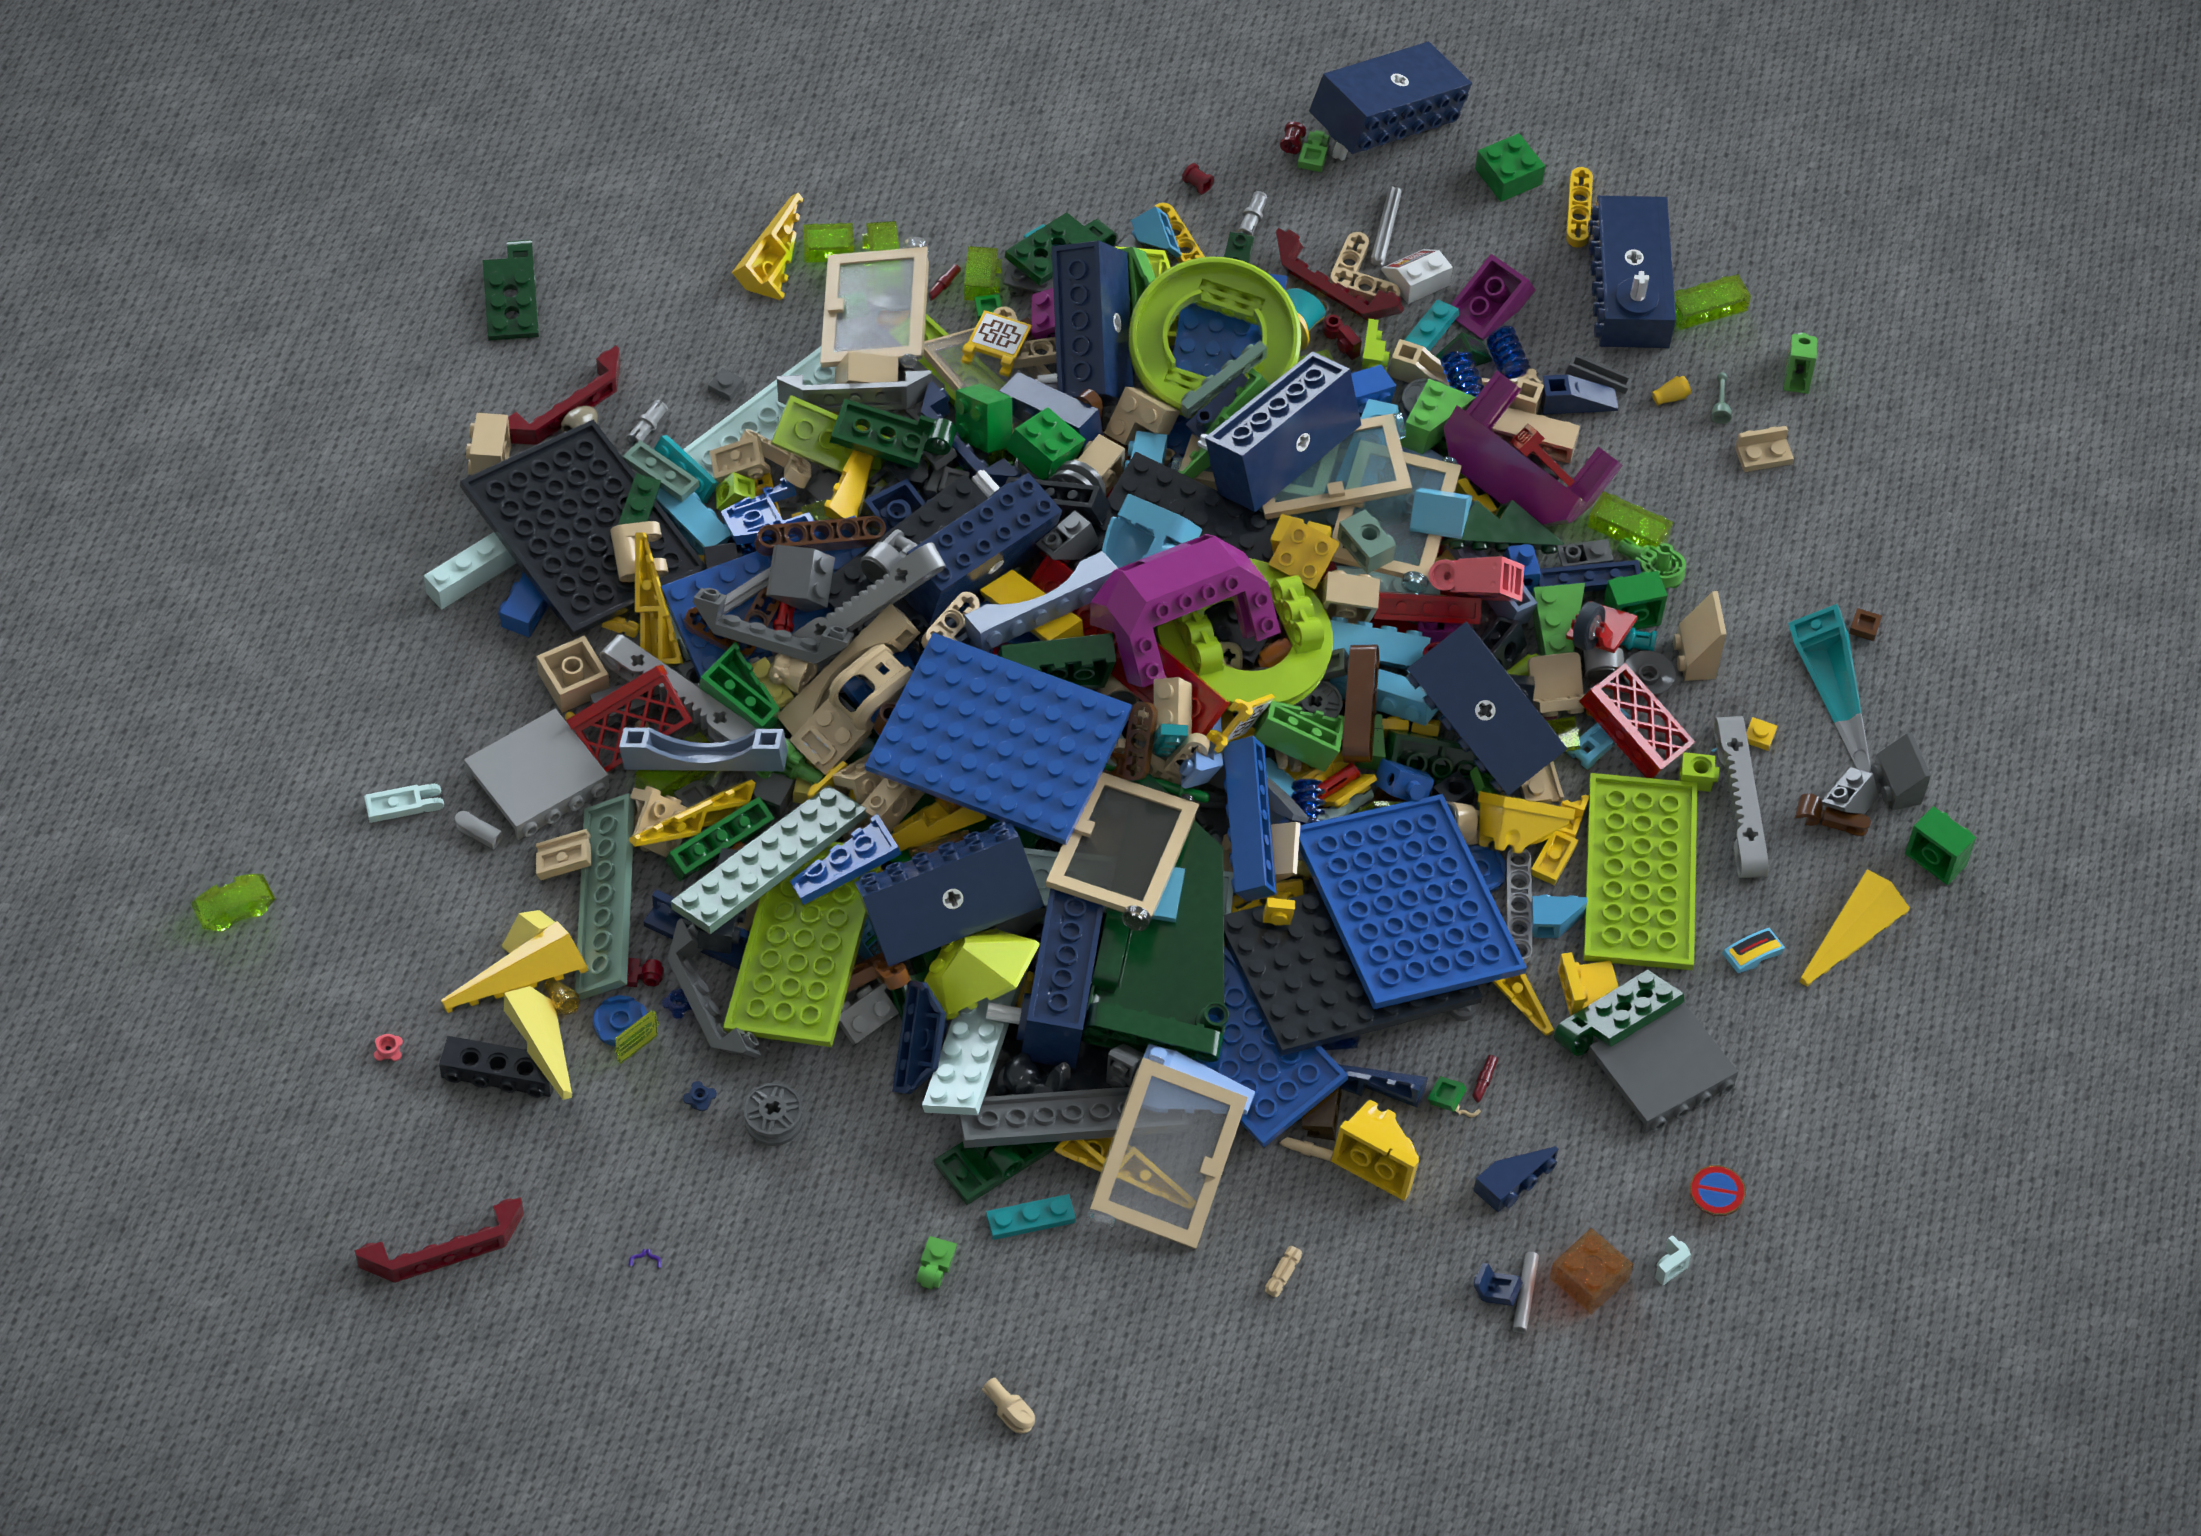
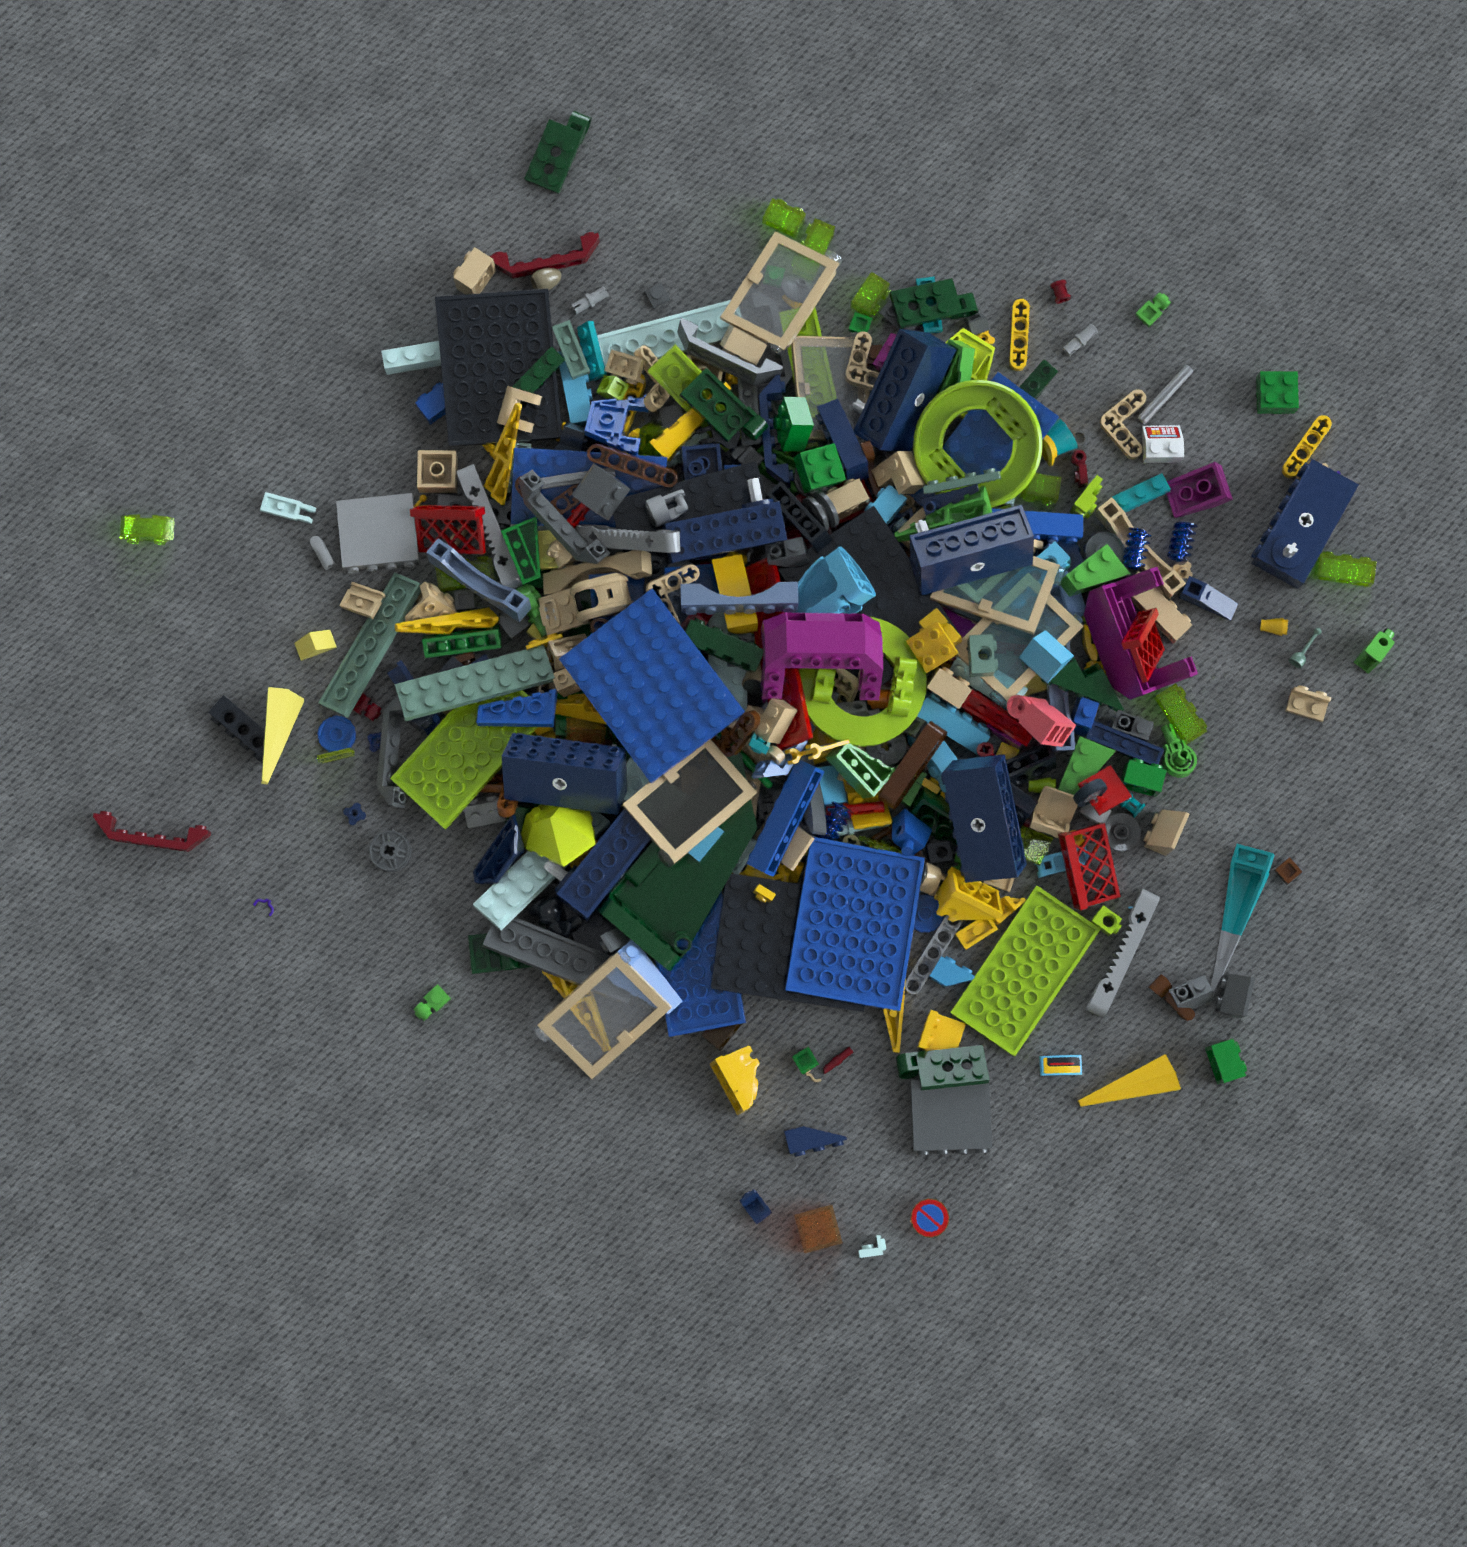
camera: 30 degrees right, 25 degrees up
(391, 1041) = (183, 680): coral plate -> none
(540, 958) = (305, 669): yellow wedge -> none
(563, 997) = (309, 701): clear yellow cone -> none
(765, 262) = (732, 213): yellow wedge -> none
(944, 281) = (845, 286): dark red piece -> none
(998, 338) = (846, 358): flag -> none
(1011, 1408) = (420, 1125): tan arm -> none
(1030, 1217) = (506, 1003): teal plate -> none
(1155, 232) = (1003, 324): dark azure slope -> none
(1283, 1271) = (634, 1123): tan axle -> none
(1293, 137) = (1145, 291): dark red bush -> none
(1307, 1148) = (699, 1048): tan piece -> none
(1381, 306) = (1085, 381): dark red slope -> none
(1389, 98) = (1223, 301): dark blue piece -> none
(1395, 1085) = (771, 1035): dark blue wedge -> none
(1467, 343) = (1155, 523): dark green slope -> none
(1526, 1292) = (772, 1218): light grey piece -> none
(1597, 373) = (1234, 586): dark grey piece -> none
(1760, 733) = (1167, 913): yellow plate -> none

